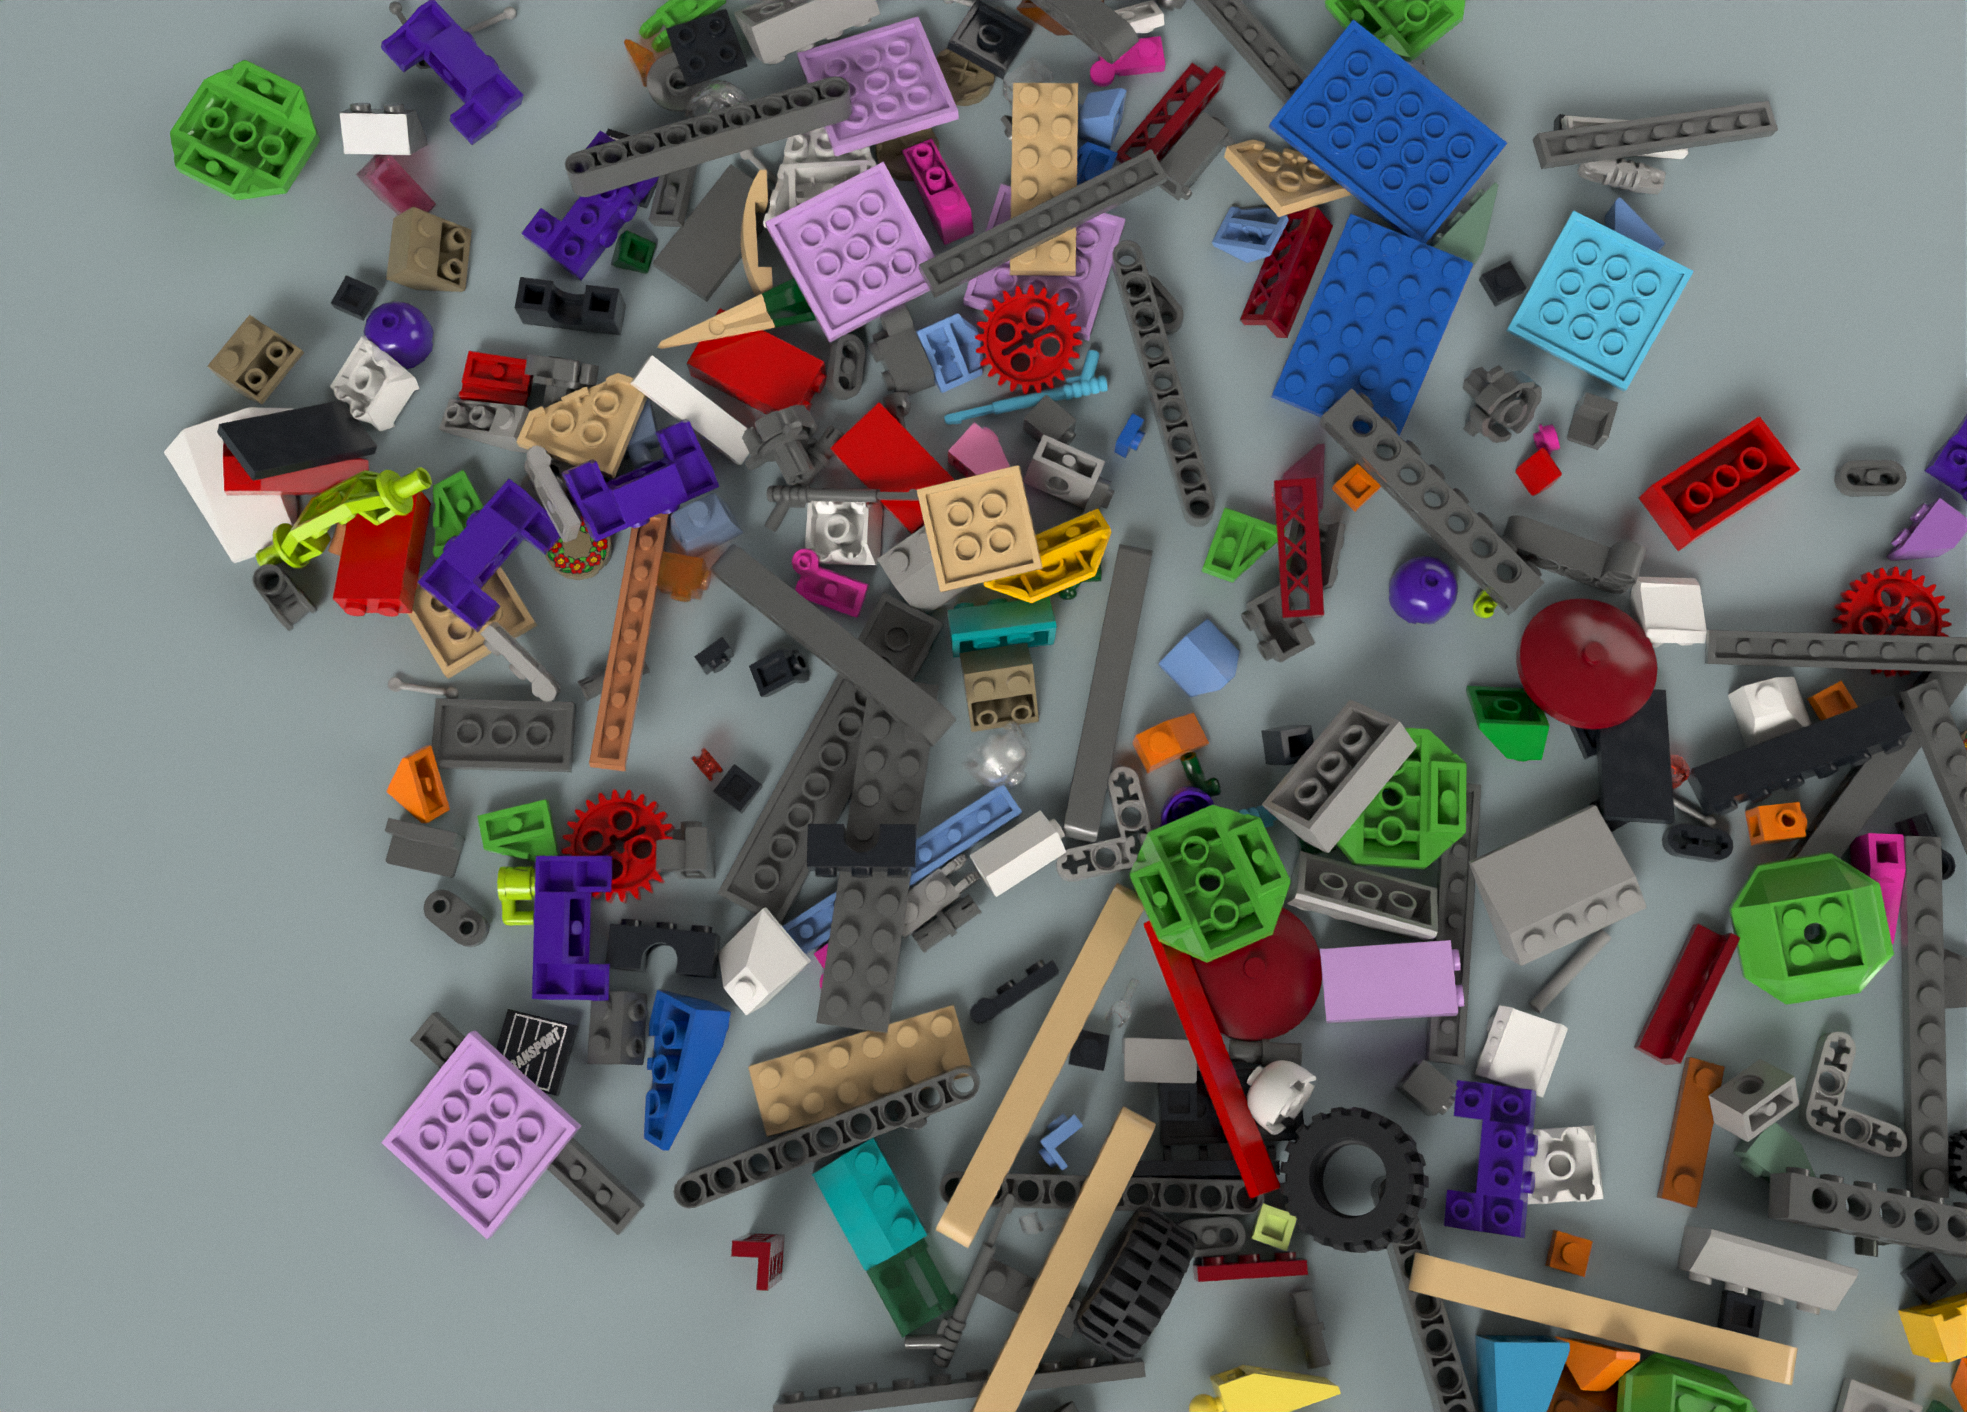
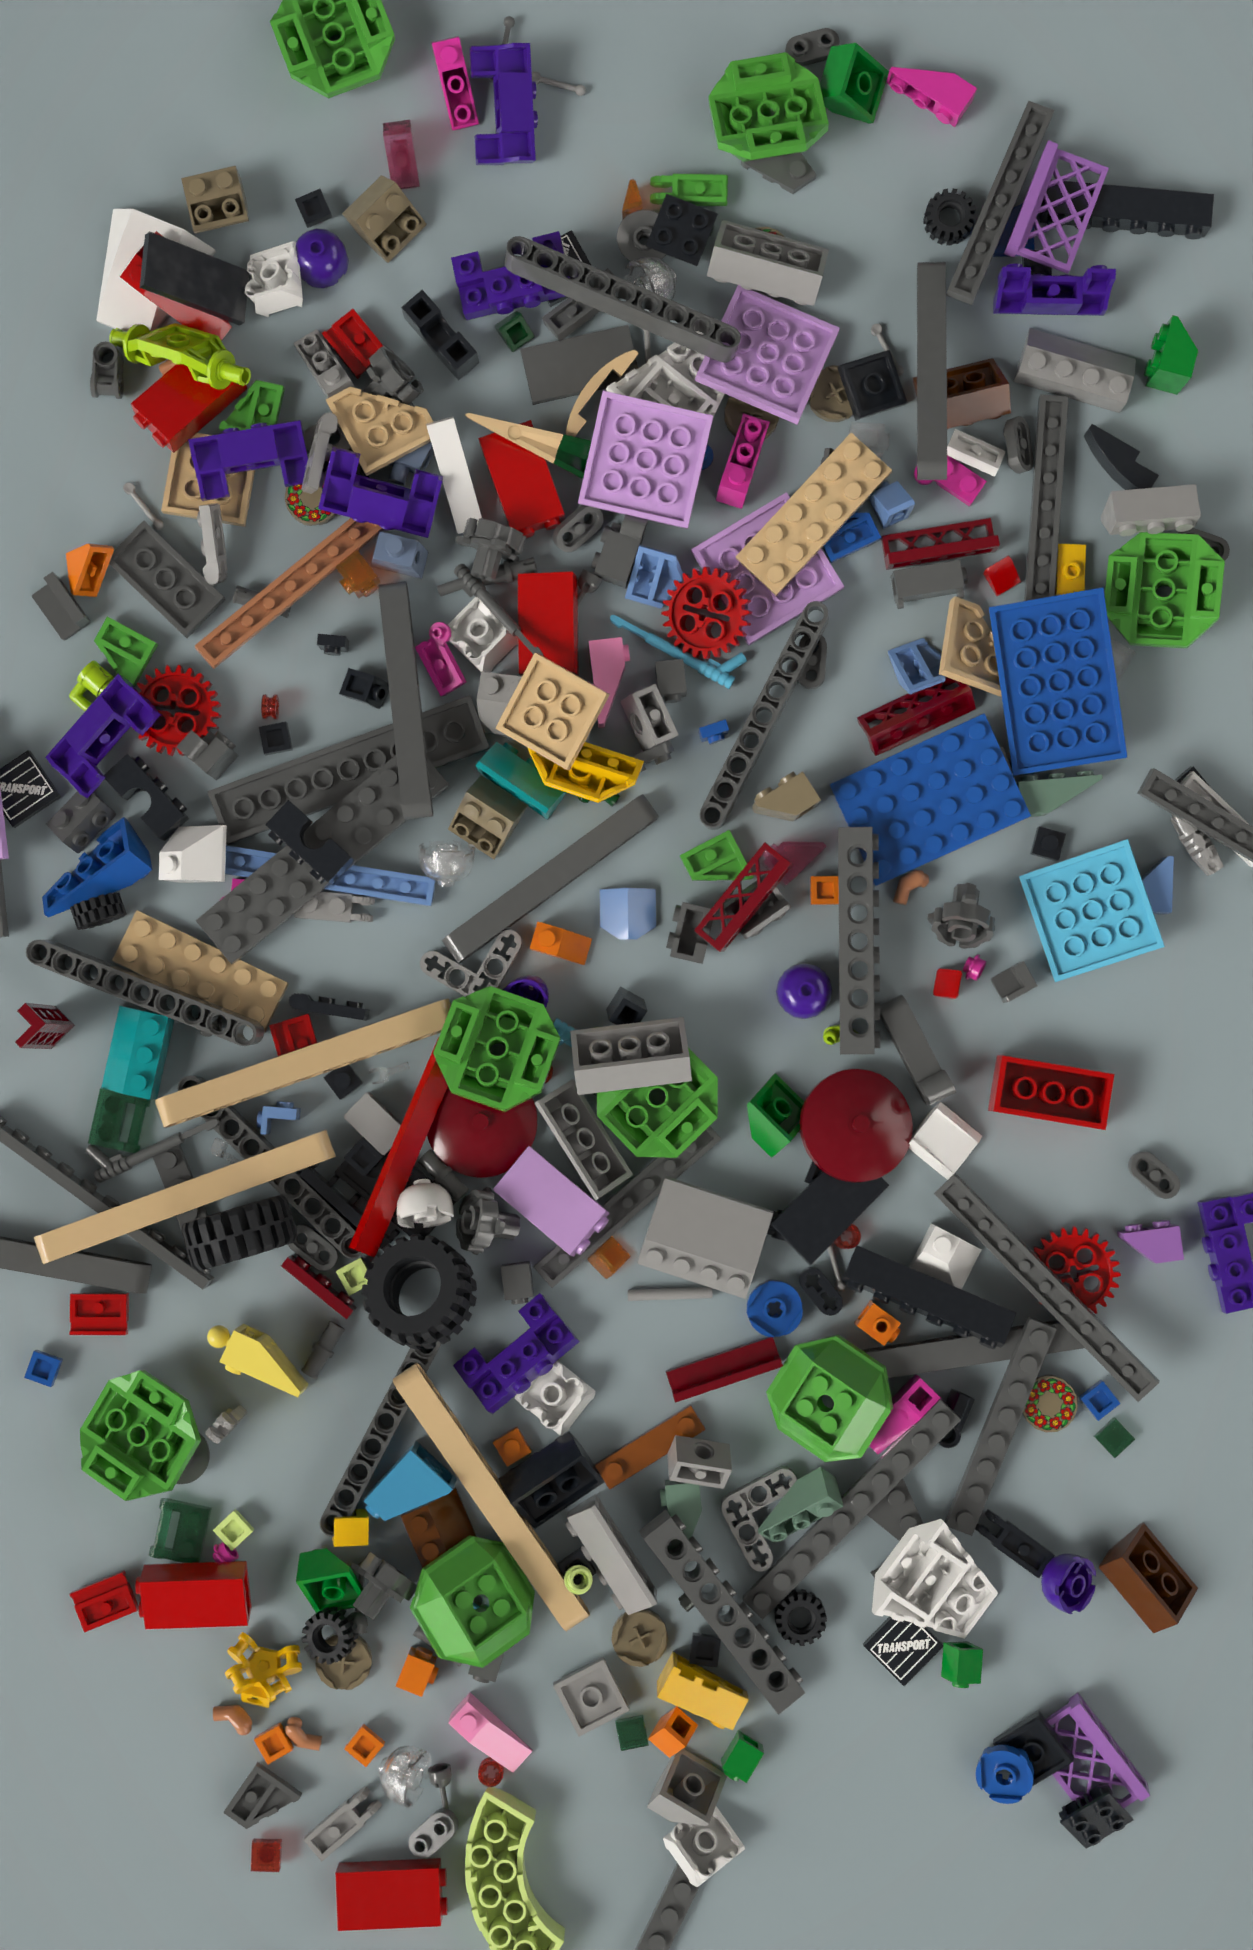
camera: 45 degrees right, 10 degrees up
(381, 130) = (419, 110): slope -> none
(383, 85) = (455, 82): none -> dark pink slope
(455, 917) = (44, 666): dark grey plate -> none
(713, 1098) = (98, 911): none -> black tyre
(946, 923) = (326, 931): dark grey pin -> none
(1004, 1049) = (293, 1034): none -> red plate
(1019, 852) = (405, 928): white brick -> none
(1042, 223) = (779, 546): dark grey plate -> none
(1196, 775) = (556, 979): dark green arm -> none
(1247, 100) = (1002, 576): none -> red slope
(1252, 432) = (789, 800): none -> dark tan slope
(1299, 45) = (1070, 568): none -> yellow plate
(1344, 1060) = (483, 1221): none -> dark grey piece
(1420, 417) = (909, 882): none -> nougat arm
(1486, 990) = (609, 1257): none -> clear orange slope
(1520, 1050) = (594, 1311): white slope -> none
(1597, 1364) = (462, 1514): orange slope -> none
(1636, 1249) = (551, 1480): none -> black slope
(1684, 879) = (777, 1324): none -> blue plate
(1764, 1315) = (586, 1581): none -> yellowish green plate
(1832, 701) = (987, 1286): orange plate -> none
(1859, 1327) = (639, 1637): none -> dark tan tile
(1879, 1047) = (806, 1501): none -> sand green slope

